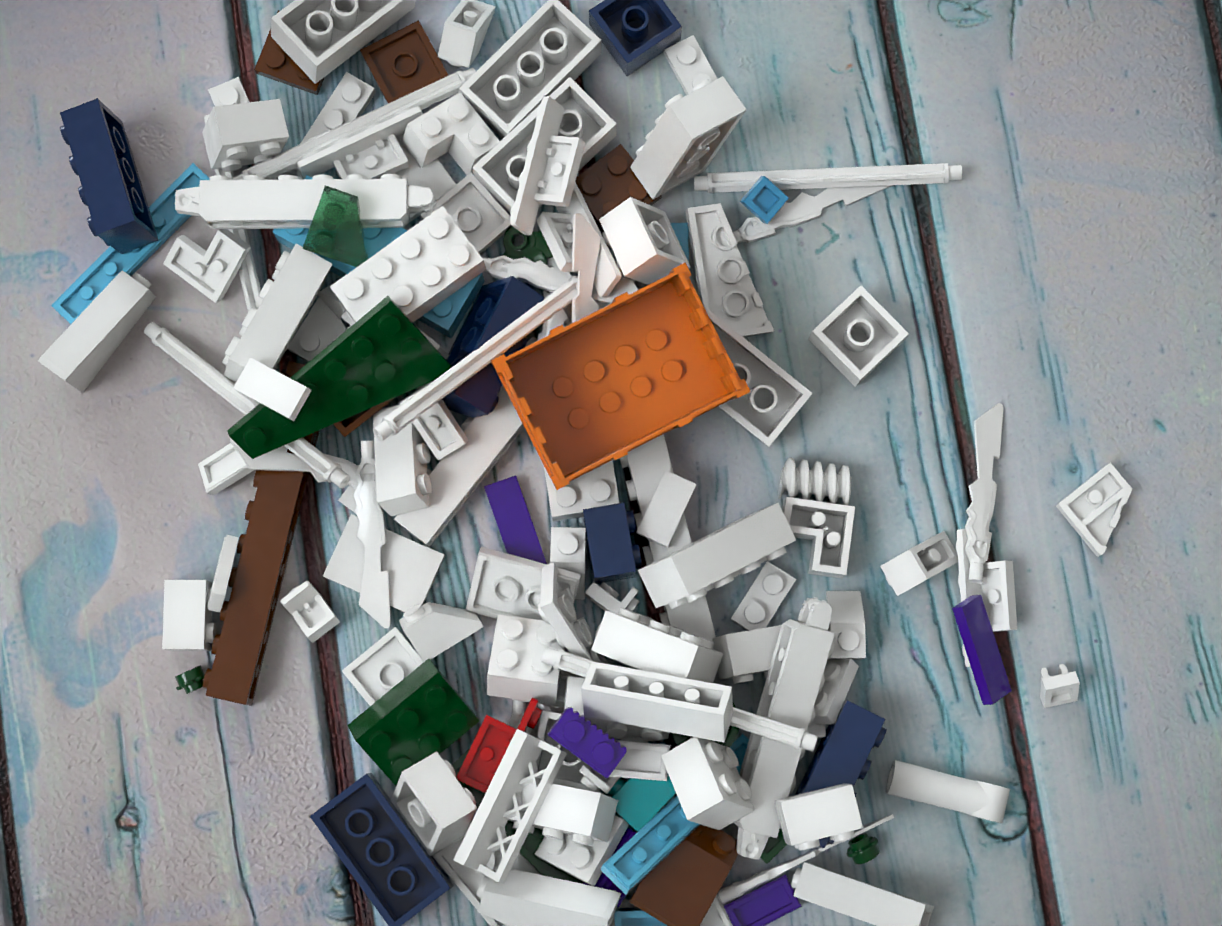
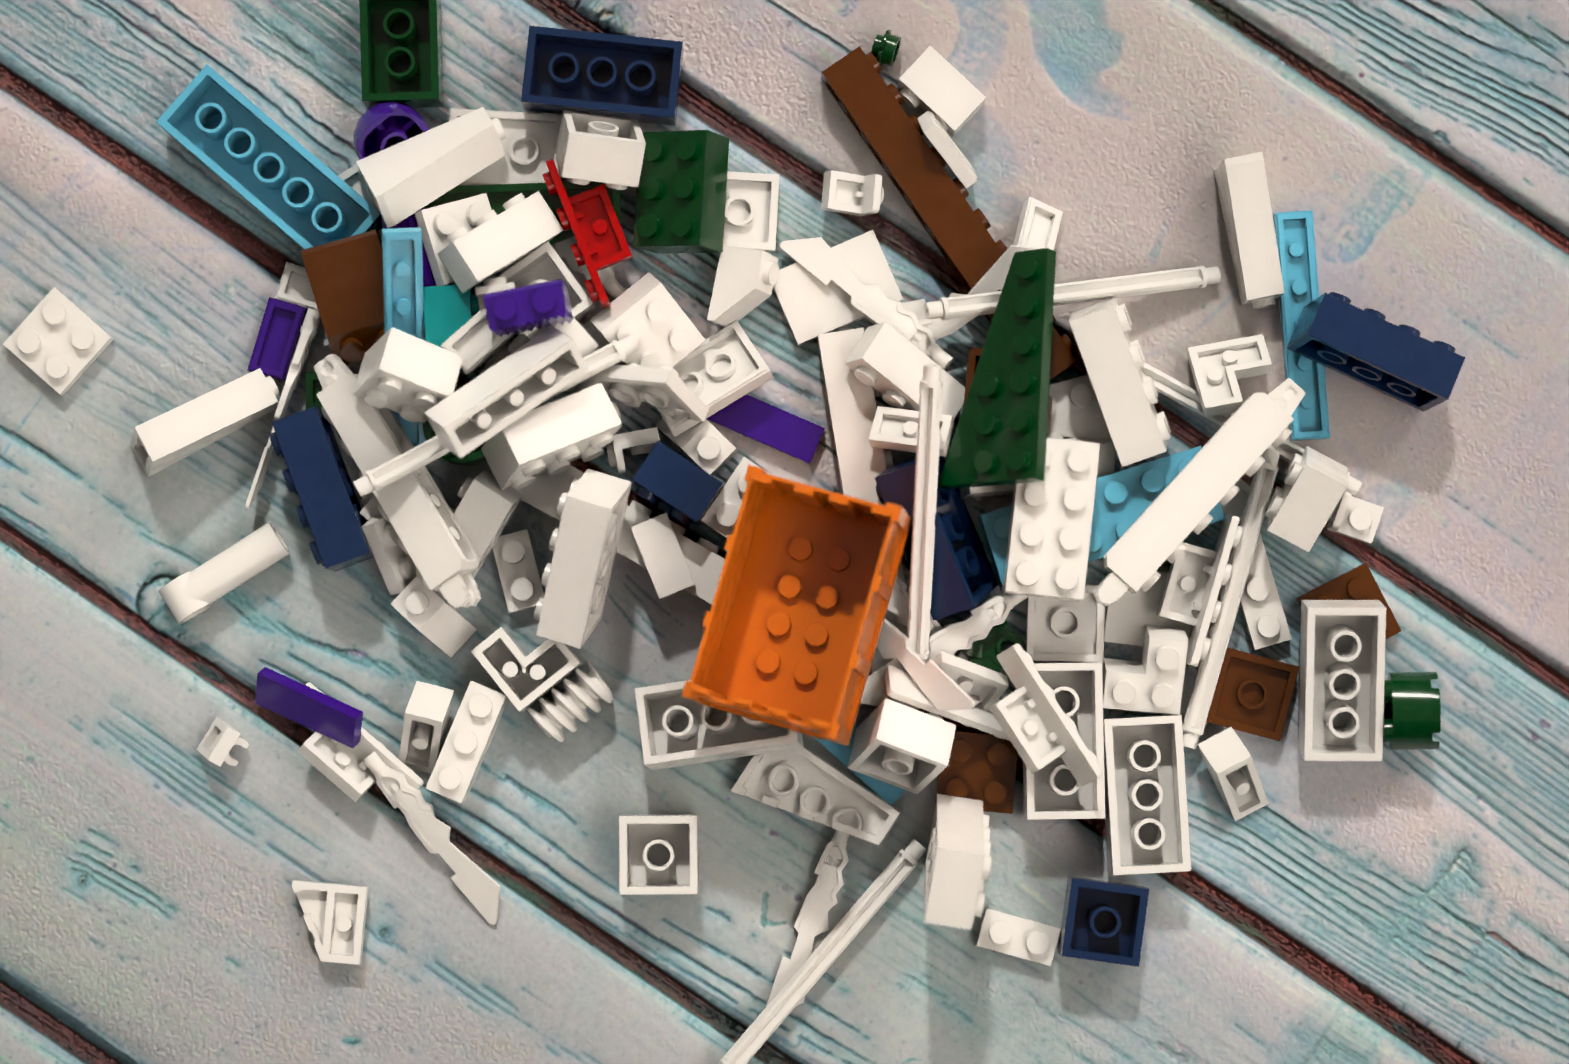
camera: 130 degrees right, 5 degrees up
(272, 389) = (1052, 315): white tile -> none
(337, 228) = (1145, 495): clear green wing -> none
(503, 794) = (549, 199): white fence -> none
(764, 199) = (848, 887): dark azure plate -> none
(819, 815) = (298, 436): white brick -> none
(863, 848) = (244, 461): dark green plate -> none
(904, 526) = (467, 742): none -> white brick

